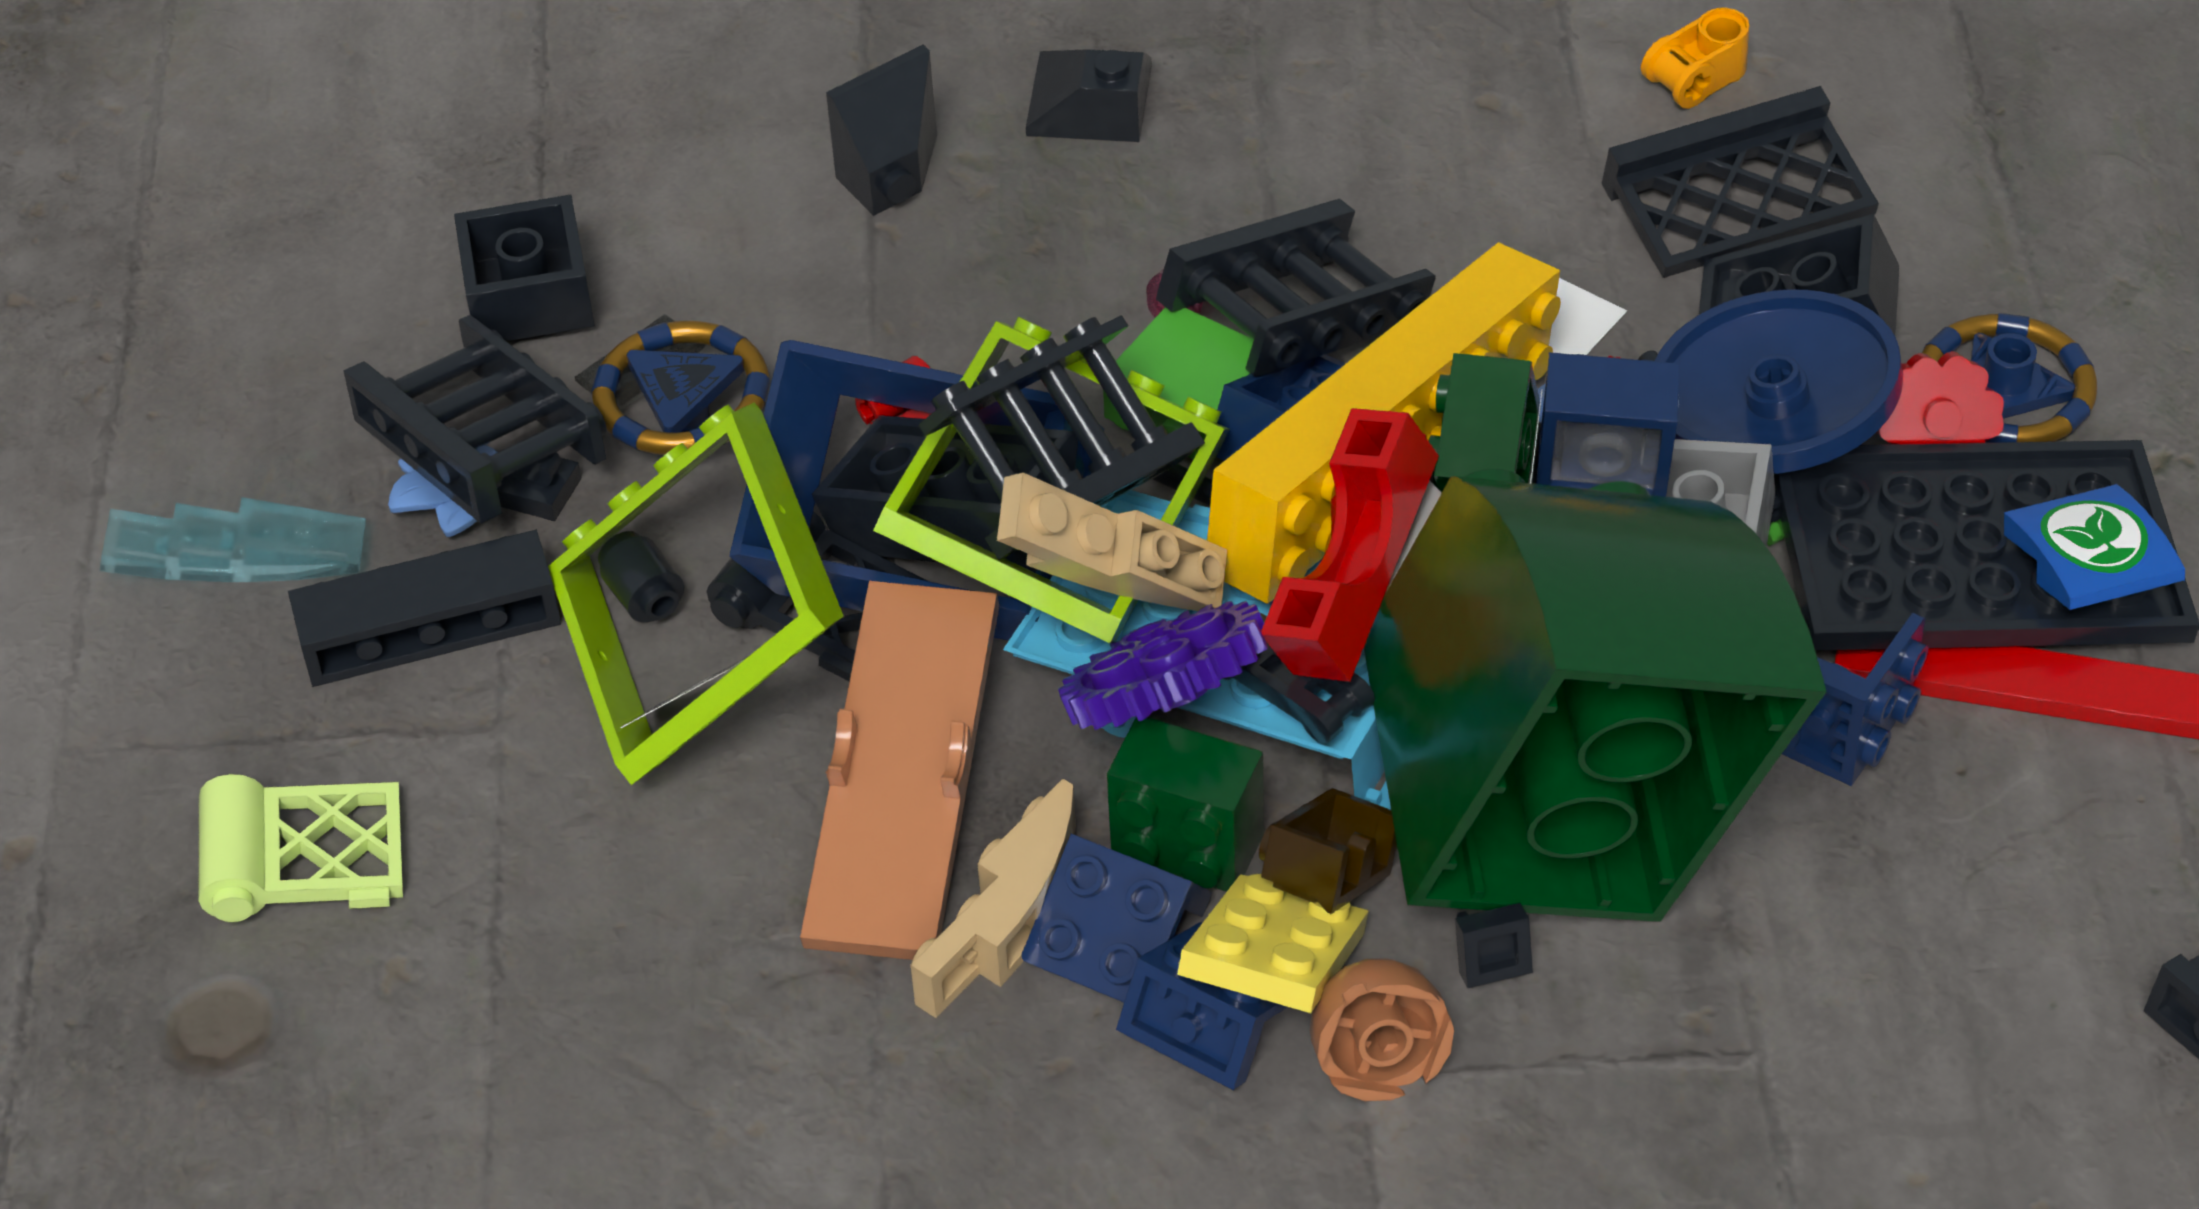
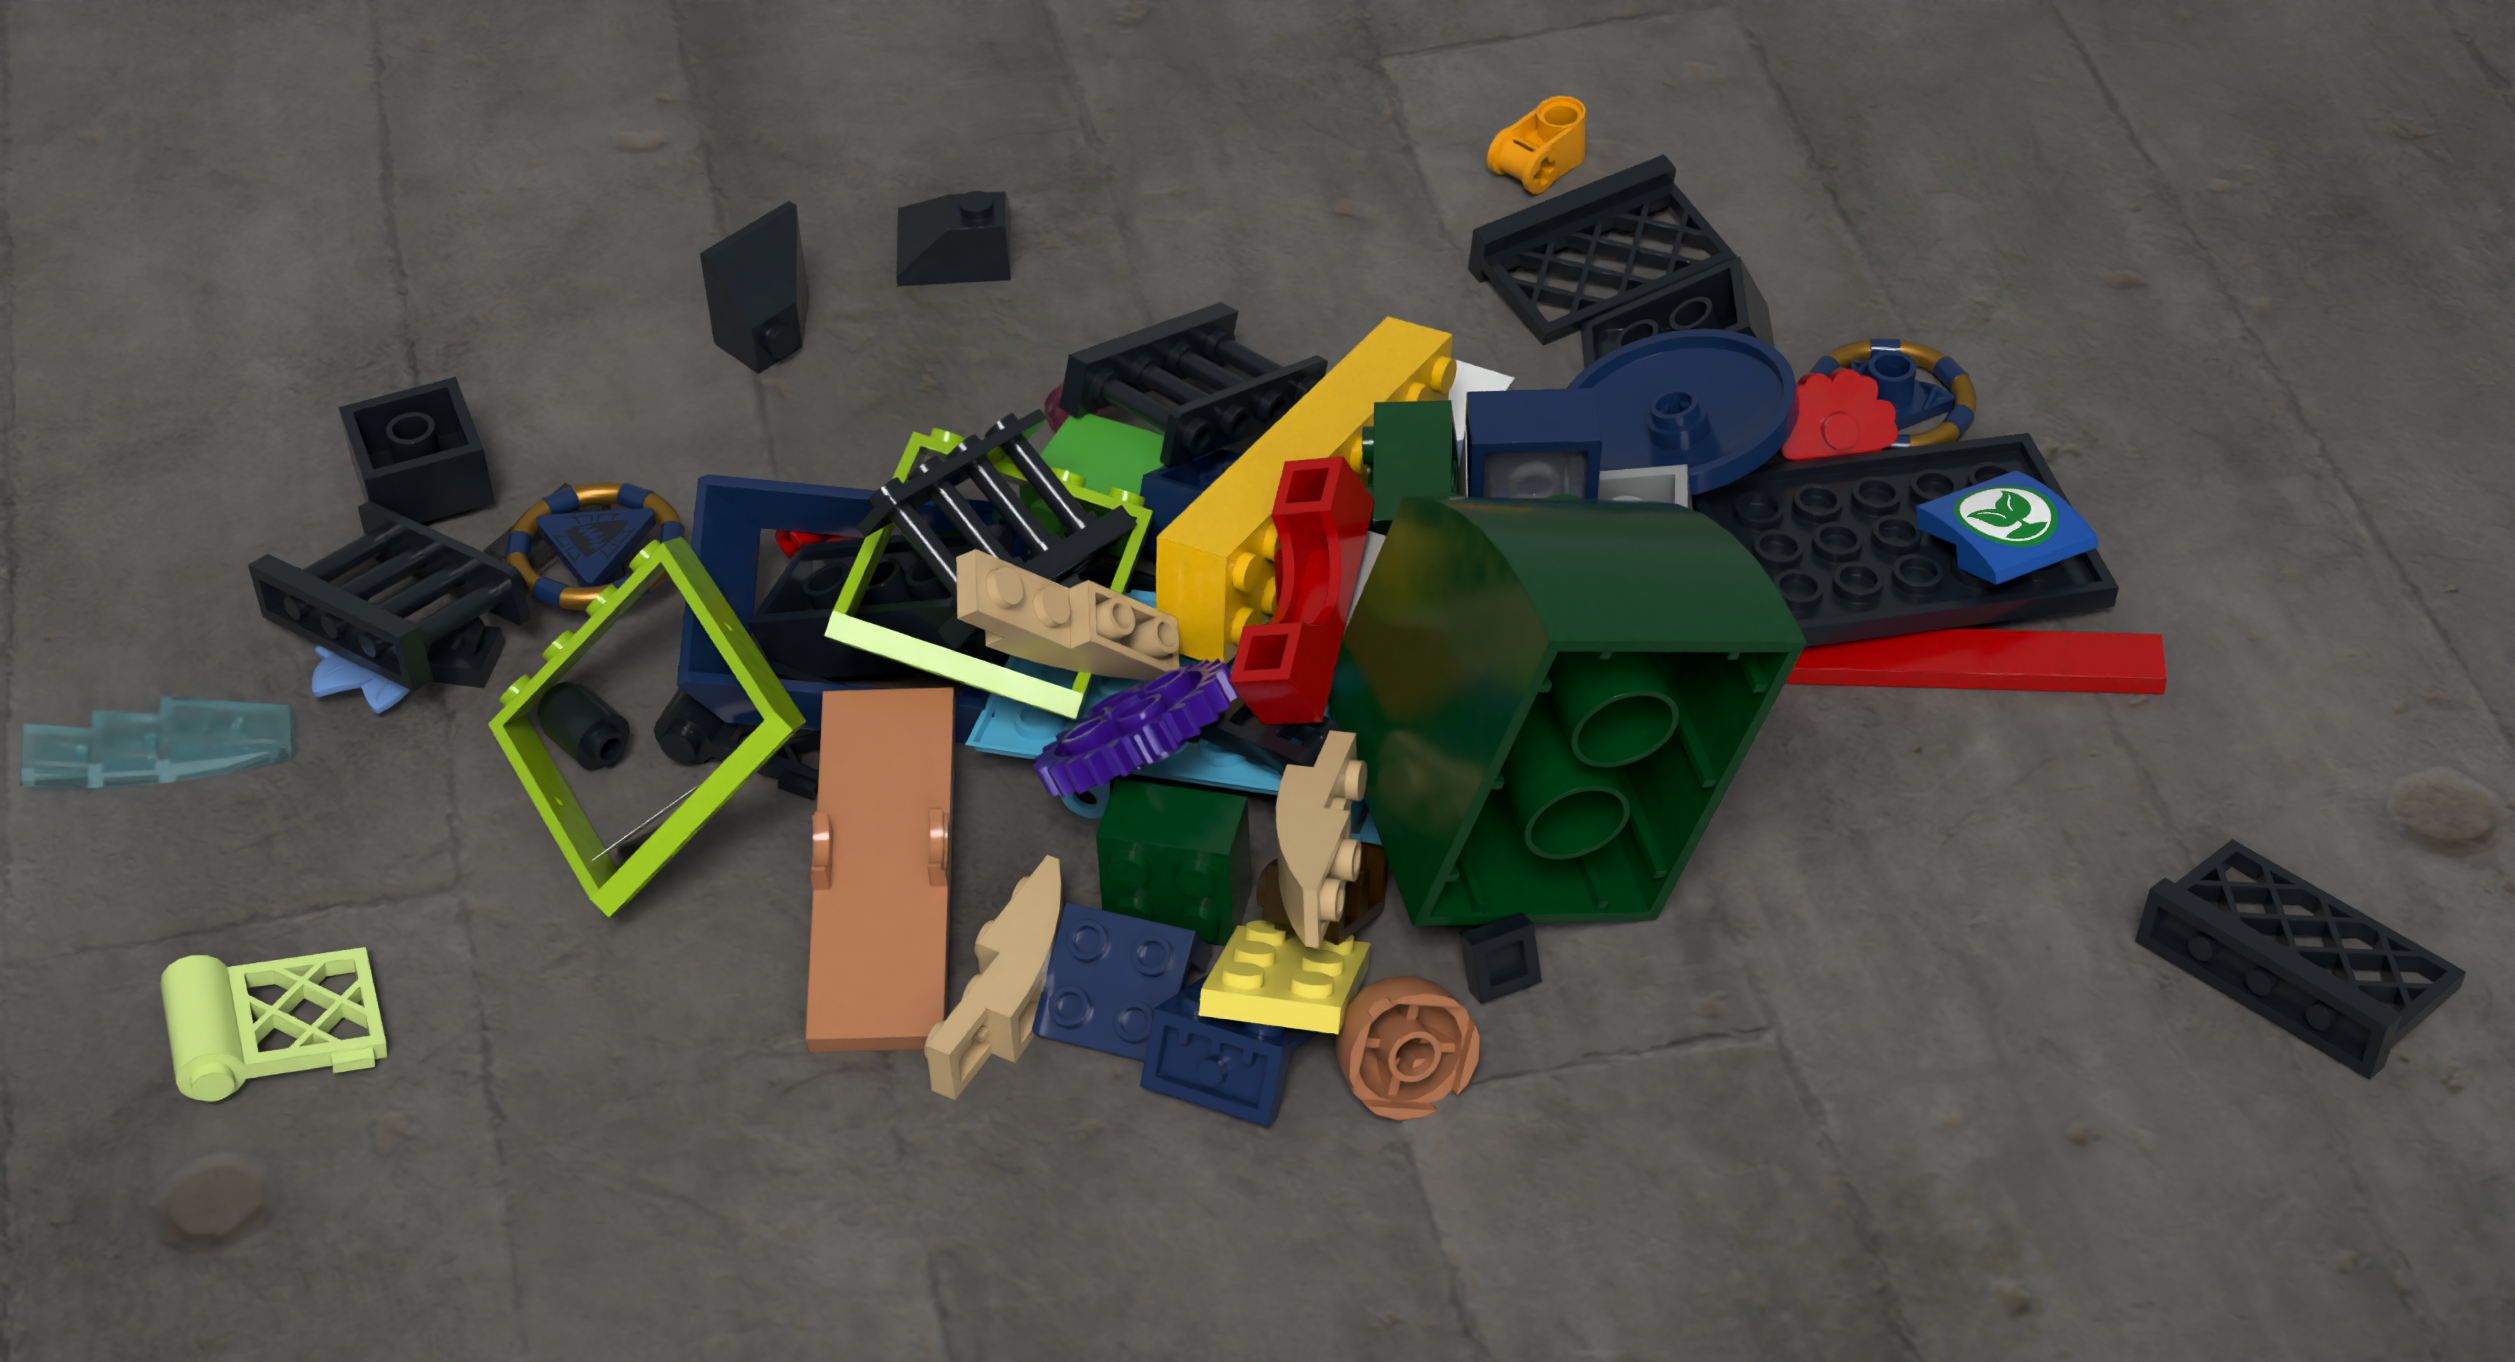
camera: 10 degrees left, 5 degrees down
(424, 608) = (365, 780): black brick -> none
(1320, 803) = (1315, 836): none -> tan slope
(1857, 713) = (1814, 700): dark blue bracket -> none

